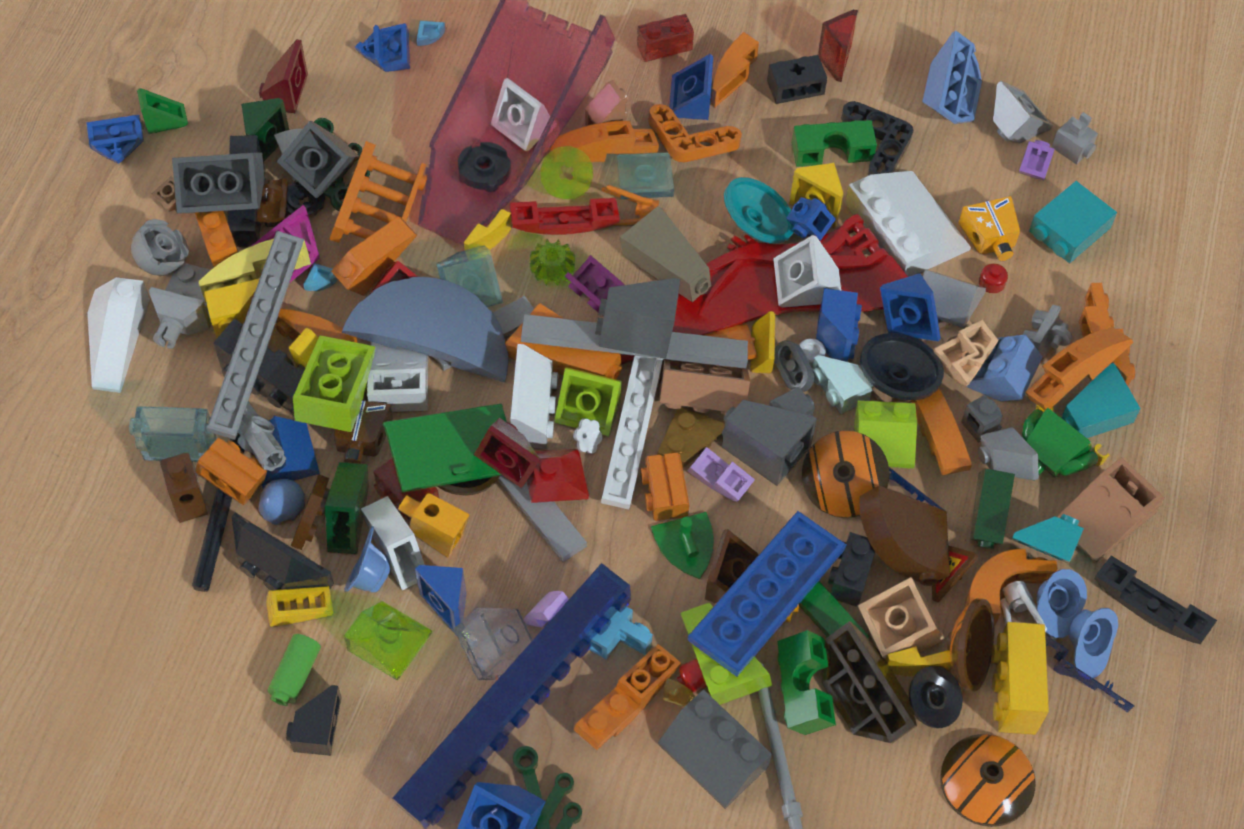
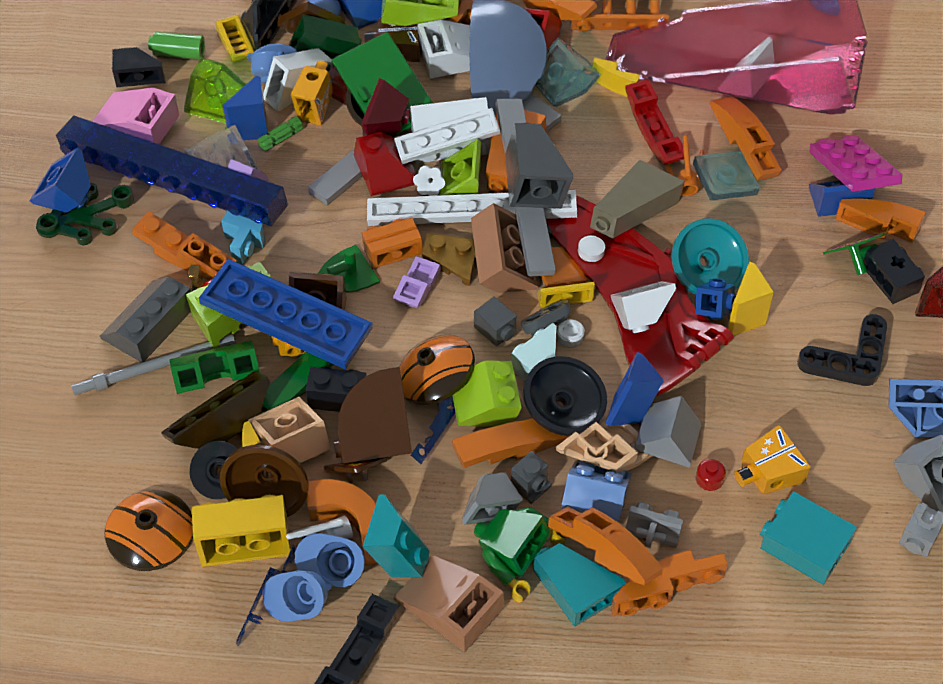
camera: 80 degrees right, 5 degrees down
(402, 730) = (140, 113): none -> bright pink slope
(472, 579) = (280, 133): none -> bright green axle
(488, 178) = (674, 56): black plate -> none
(551, 397) = (447, 136): none -> white tile
(552, 262) = (602, 125): clear neon green gear -> none
(564, 187) = (709, 115): clear neon green plate -> none
(593, 281) = (588, 158): magenta bracket -> none
(607, 105) = (783, 128): nougat slope -> none
(665, 37) = (899, 156): clear red brick -> none
(673, 65) = (855, 163): none -> dark pink plate
(685, 146) = (770, 196): orange beam -> none
(717, 308) = (591, 248): none -> white tile
(764, 94) = (856, 253): none -> green shield
(767, 438) = (449, 298): dark grey slope -> none
(839, 323) = (594, 335): blue slope -> none
(853, 138) = (818, 294): green arch -> none
(905, 220) = (752, 386): white slope -> none
(991, 507) = (429, 491): dark green slope -> none
(1037, 159) = (881, 495): medium lavender bracket -> none

